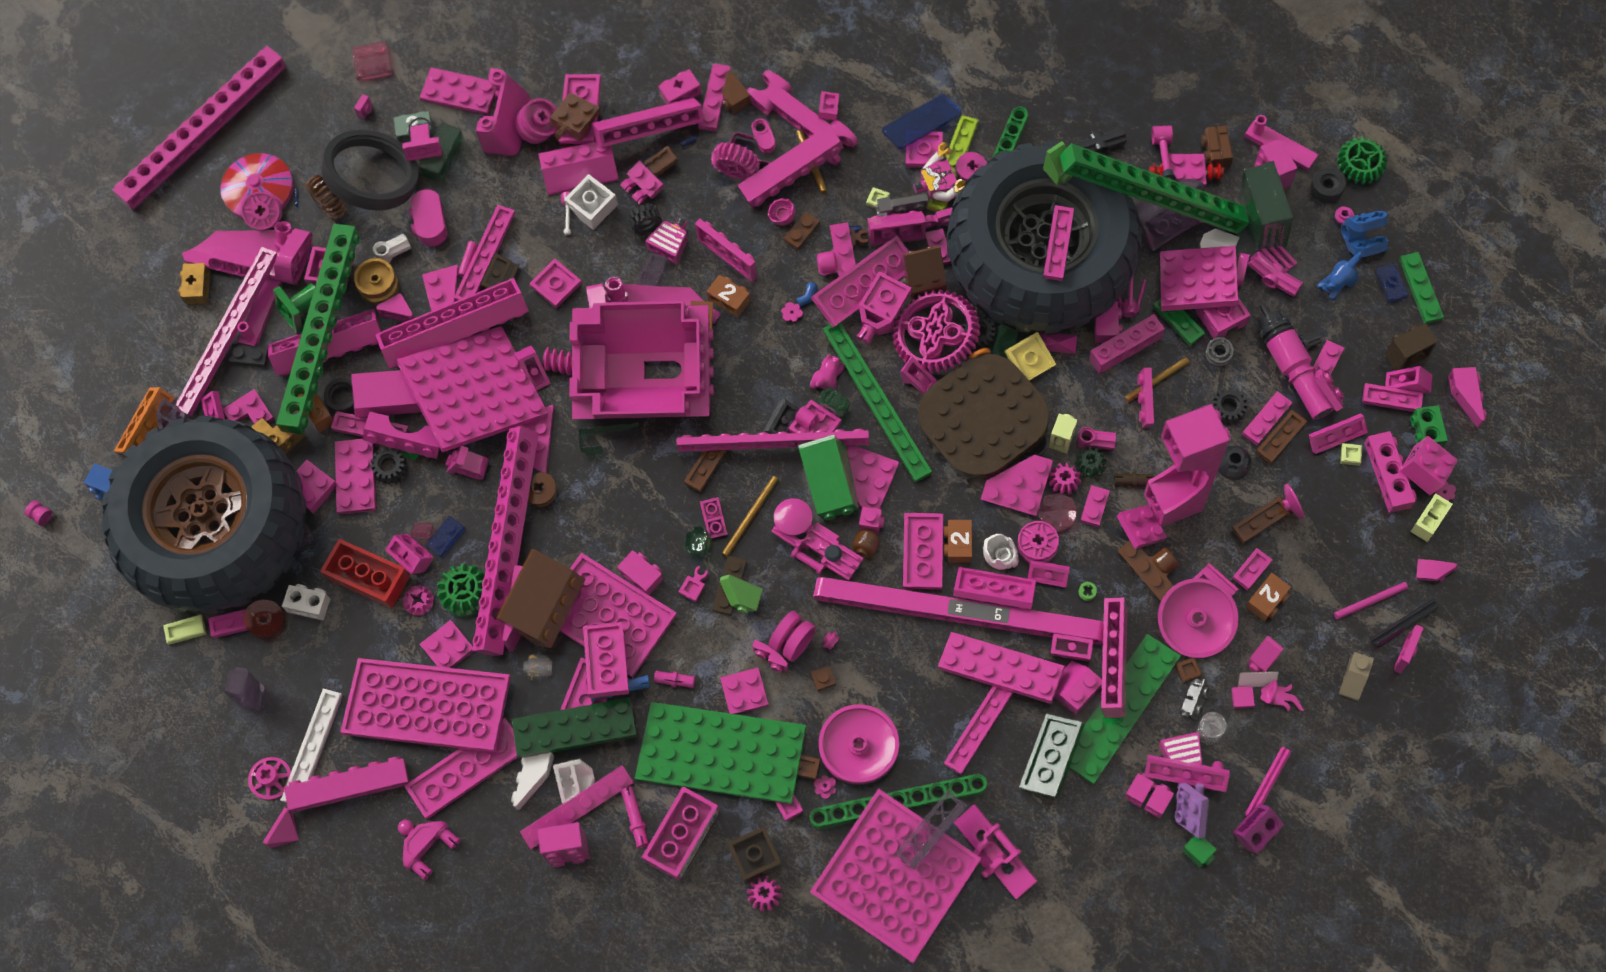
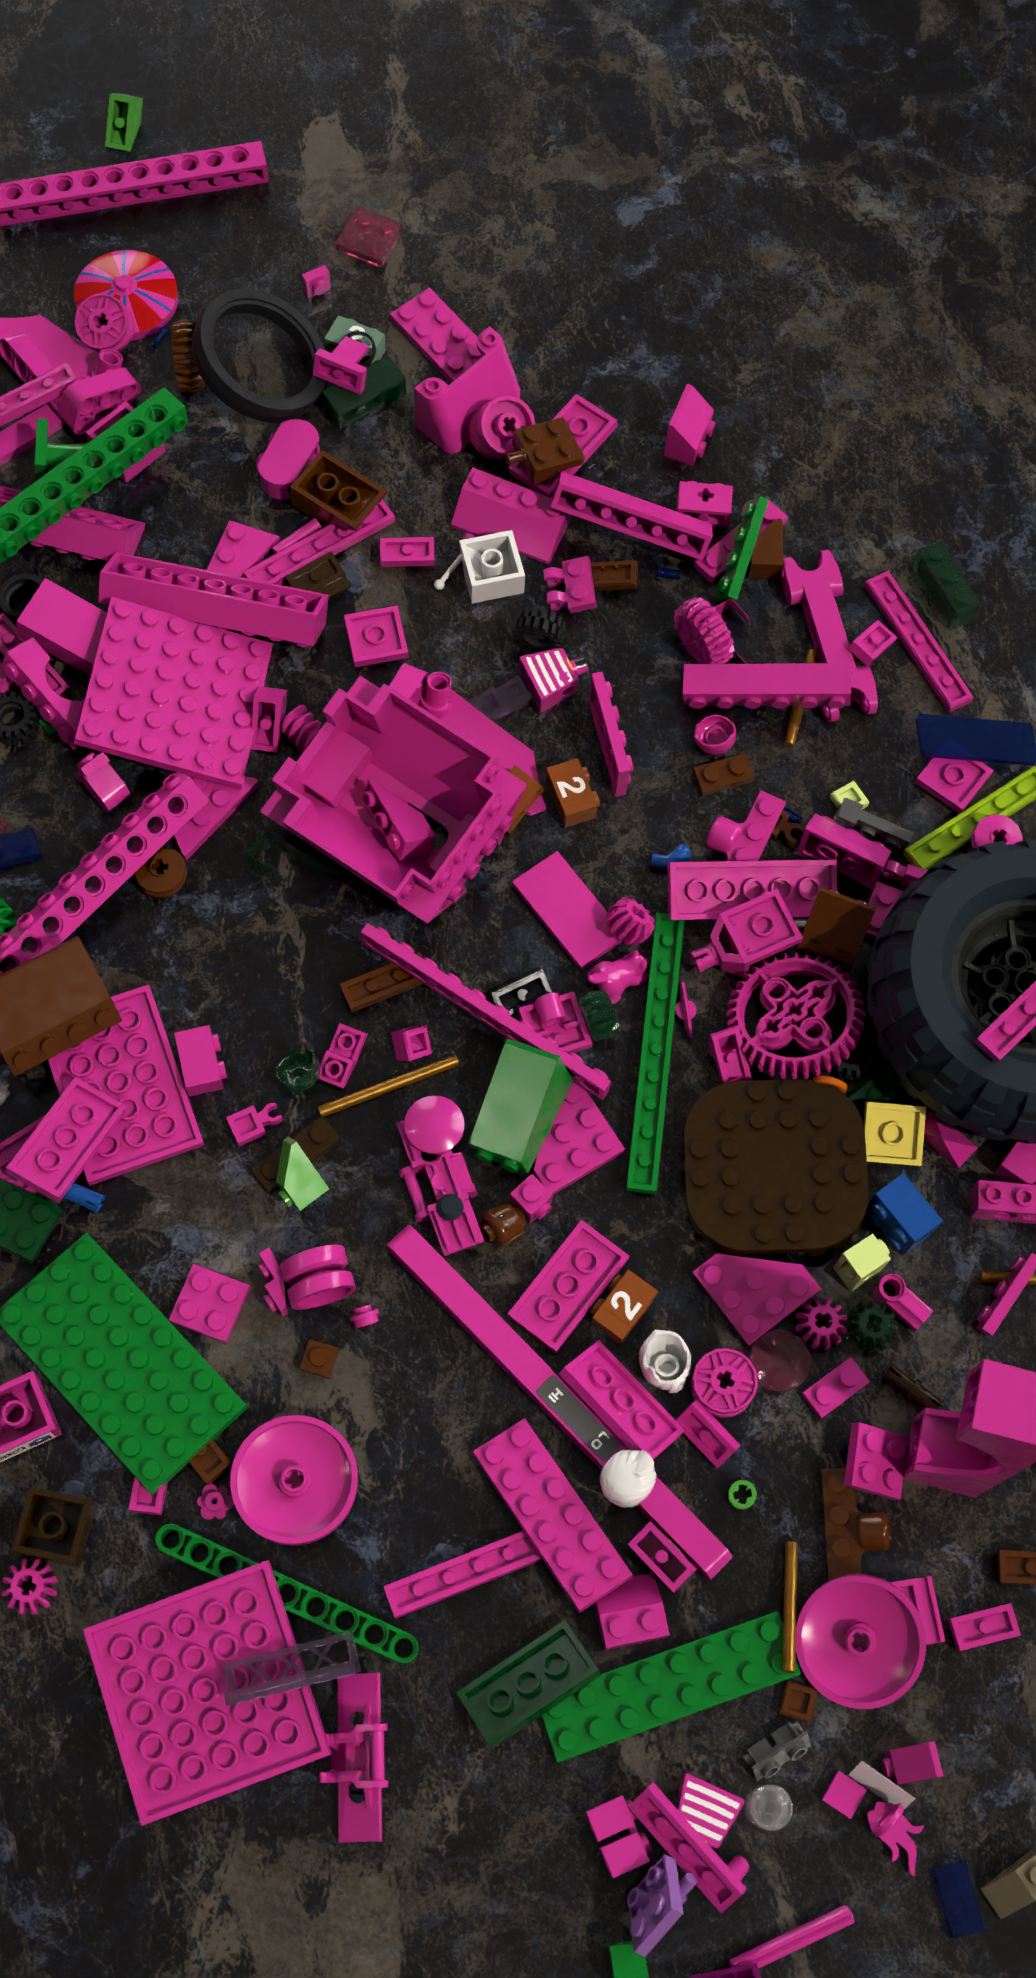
camera: 25 degrees right, 0 degrees up
(173, 86) = (123, 121): none -> bright green slope
(376, 281) = (168, 492): pearl gold wheel -> none
(392, 248) = (216, 466): white piece -> none
(395, 309) = (167, 539): dark pink slope -> none
(473, 219) = (335, 493): none -> reddish brown slope
(536, 225) = (407, 552): none -> dark pink plate
(640, 52) = (689, 427): none -> dark pink slope
(651, 374) = (401, 824): none -> dark pink slope
(674, 679) = (137, 1224): dark pink pin -> none
(721, 101) = (739, 557): none -> green plate
(745, 485) = (411, 1043): none -> dark pink slope
(764, 139) = (763, 631): dark pink piece -> none
(774, 359) = (567, 909): none -> dark pink tile
(791, 308) = (636, 860): dark pink plant -> none
(812, 342) = (630, 921): none -> dark pink gear
(844, 47) = (946, 585): none -> clear green brick
(851, 88) = (918, 641): none -> dark pink tile
(875, 368) = (685, 1009): none -> dark pink piece
(939, 178) = (944, 822): torso -> none
(1027, 620) = (628, 1477): none -> white hair
(1066, 394) = (902, 1215): none -> blue brick
(1114, 657) = (706, 1614): dark pink brick -> none
(1151, 627) = (790, 1607): none -> pearl gold bar
(1268, 597) = (979, 1683): dark orange brick -> none
(1332, 705) = (958, 1899): none -> clear blue plate

